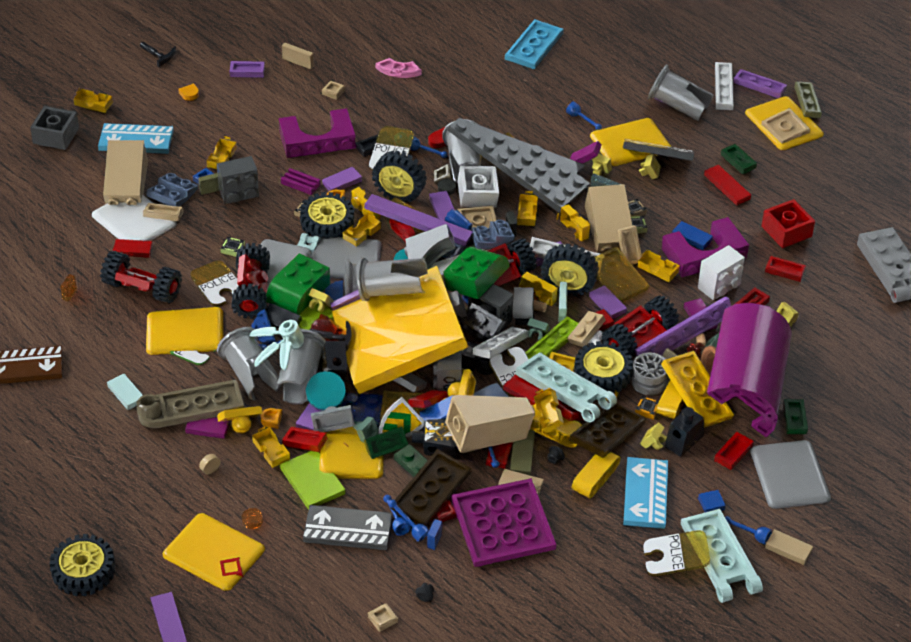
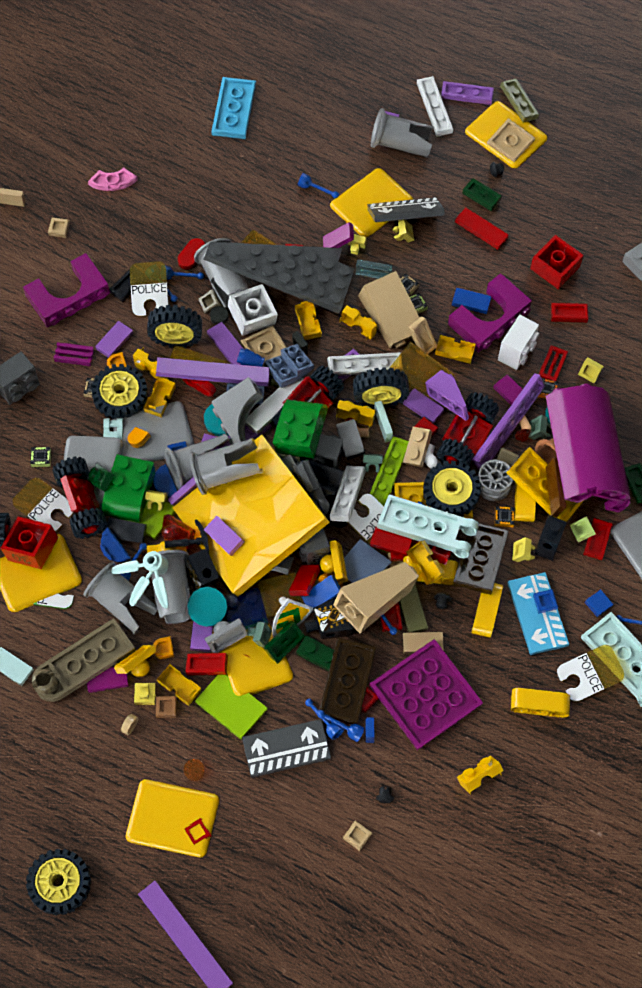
camera: 20 degrees left, 20 degrees up
(189, 301) = (29, 542): none -> red brick
(236, 446) = (145, 694): none -> light yellow tile
(251, 463) = (166, 707): none -> medium nougat tile
(275, 267) = (100, 477): none -> dark green plate
(327, 254) = (138, 437): none -> light orange tile
(366, 337) = (223, 535): none -> medium lavender tile
(466, 318) = (311, 484): none -> dark grey piece
(517, 601) = (471, 778): none -> yellow piece
(614, 562) = (540, 702): none -> yellow beam
(631, 290) = (444, 390): none -> medium lavender slope
(656, 481) = (545, 601): none -> blue tile
(701, 392) = (555, 488): none -> reddish brown tile
(721, 437) = (582, 529): none -> yellowish green tile
(762, 144) = (496, 169): none -> black piece

